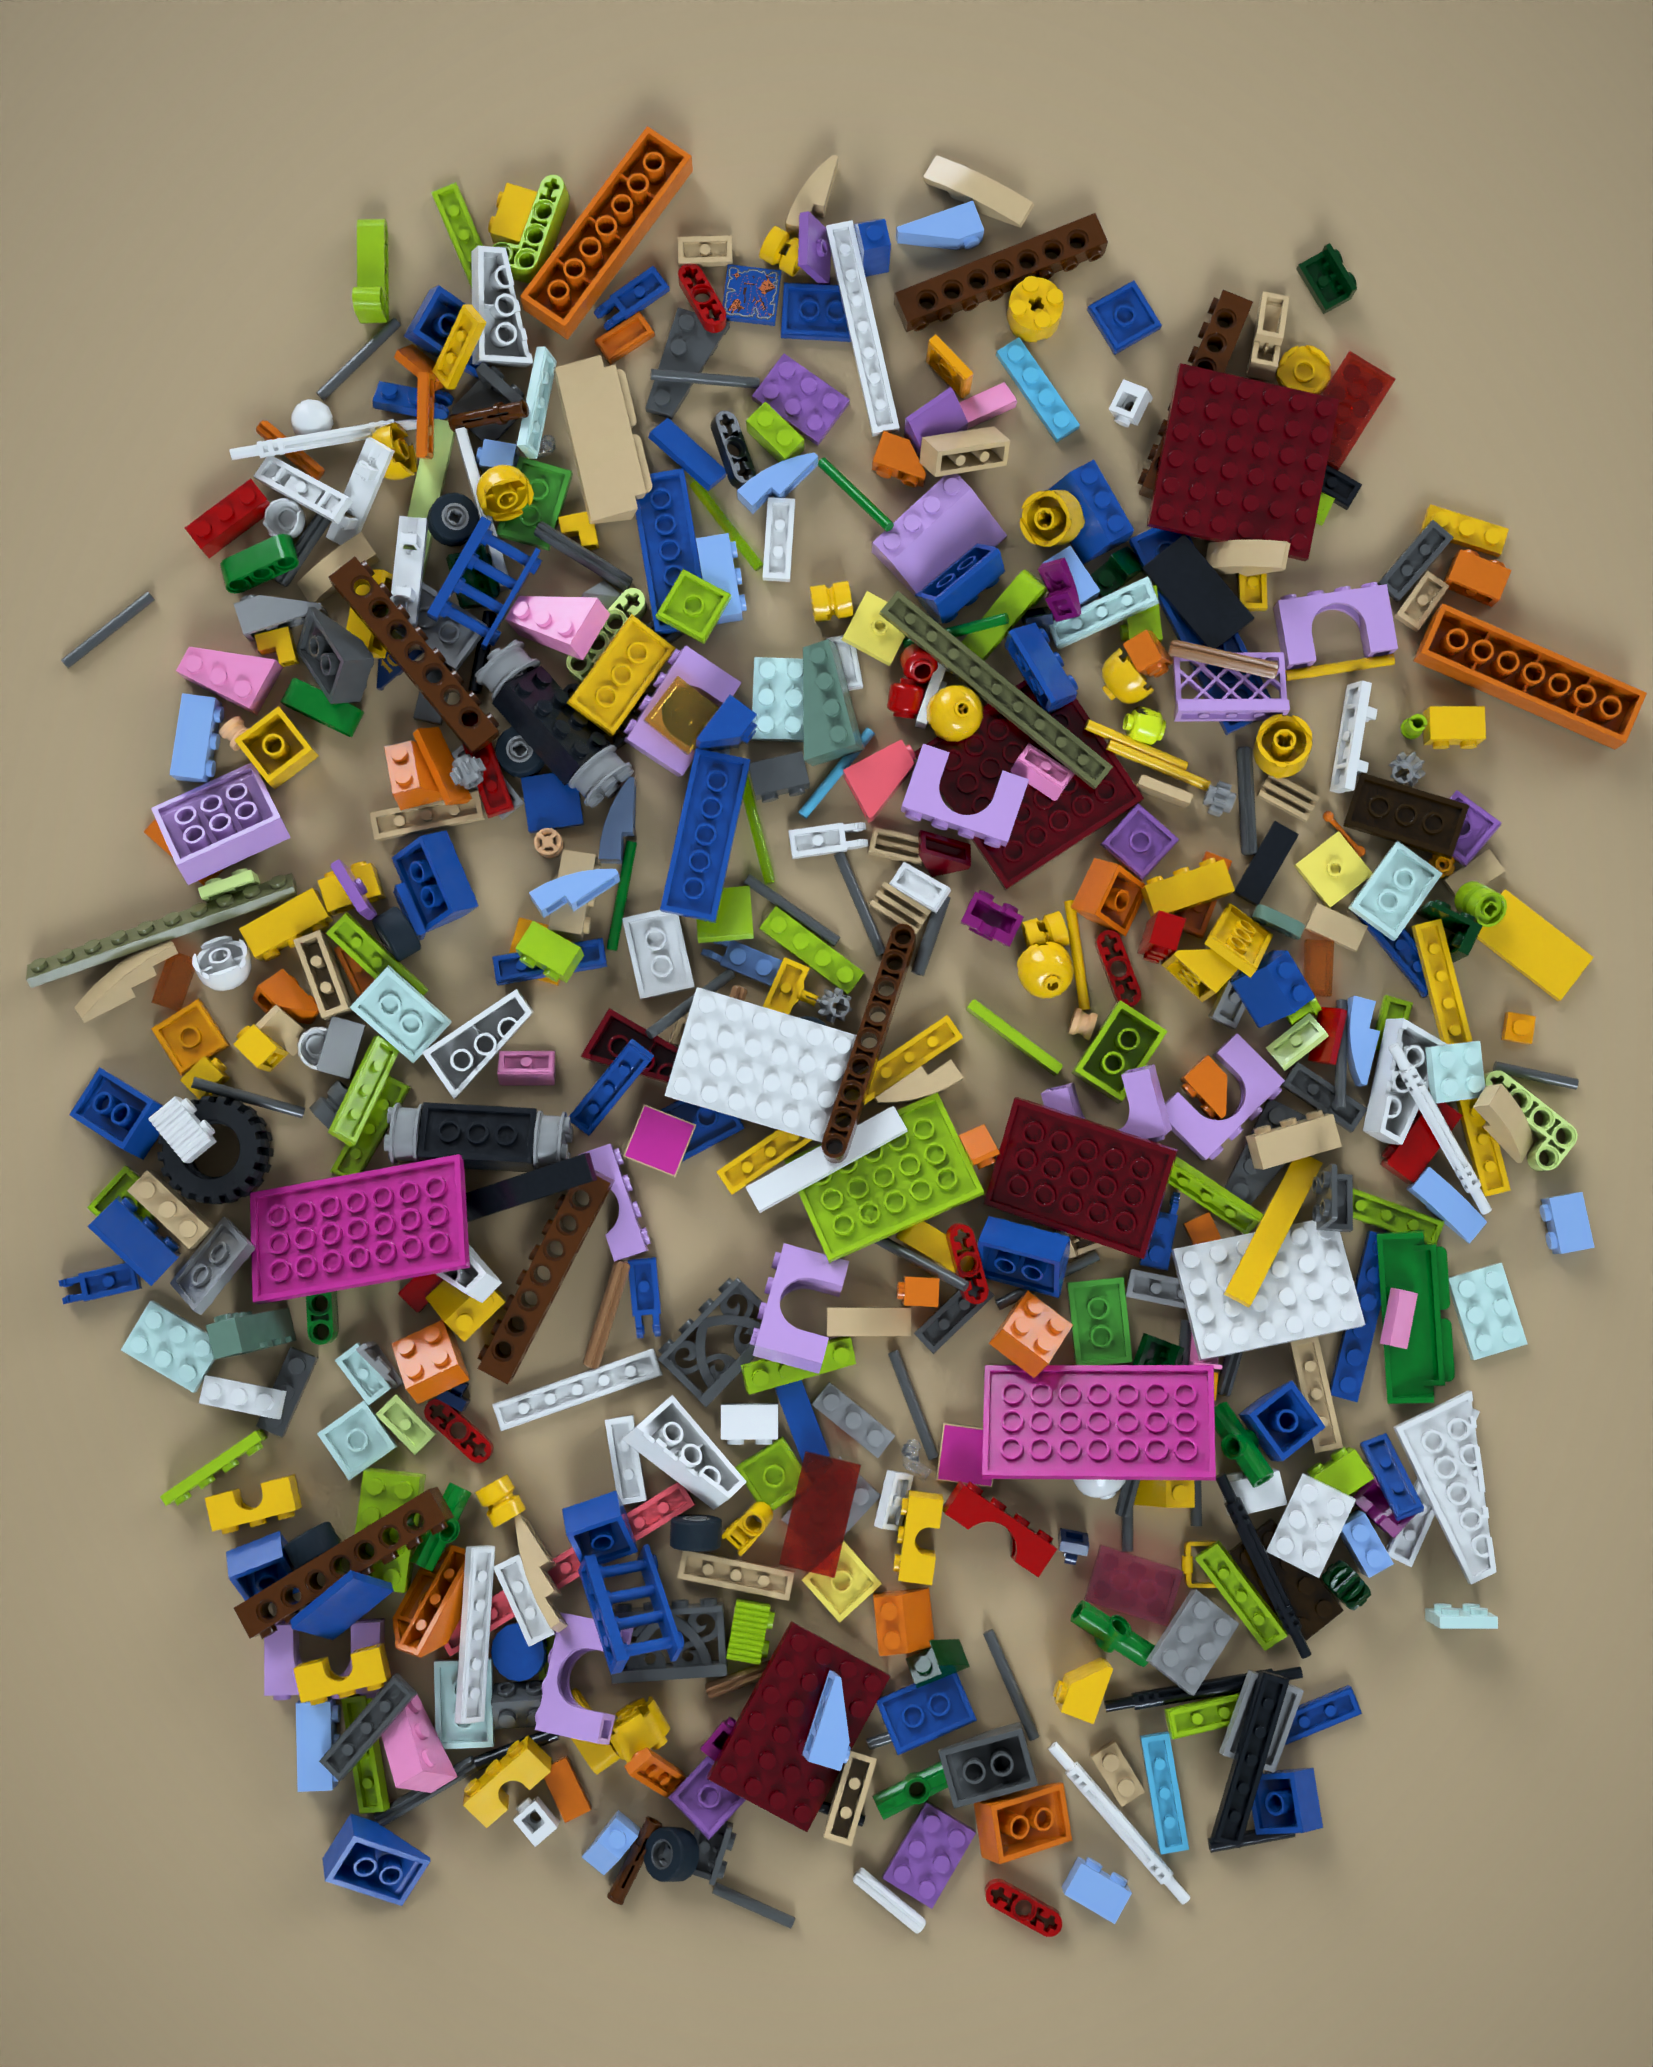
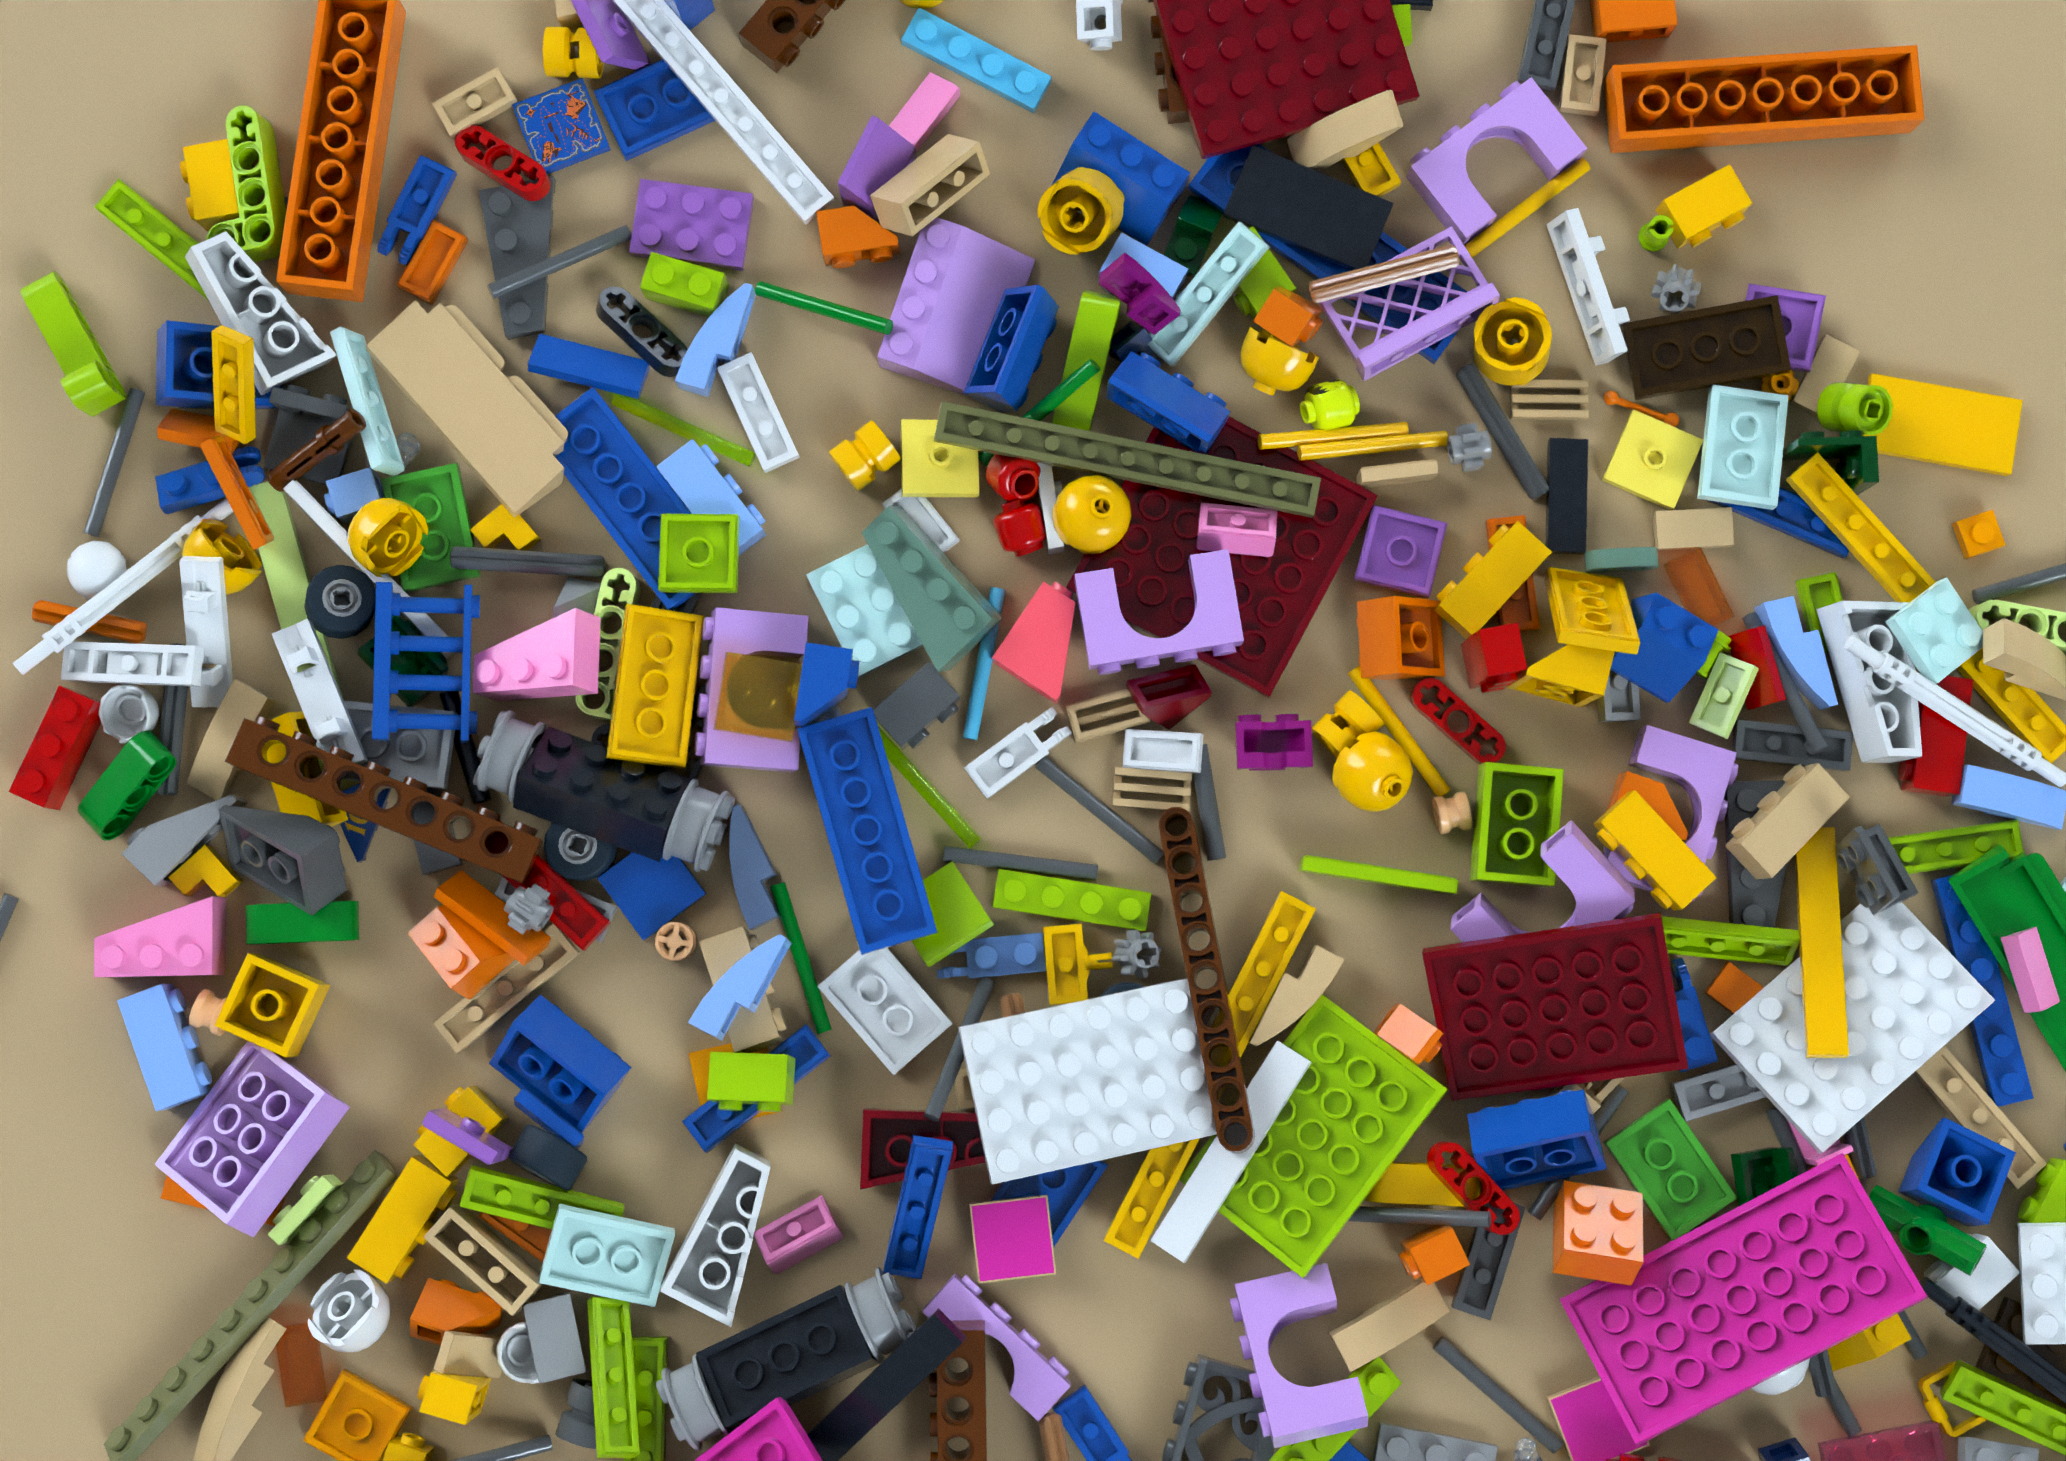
camera: 25 degrees left, 0 degrees up
(949, 366) = (854, 89): light orange tile -> none
(1196, 1112) = (1653, 851): none -> yellow brick

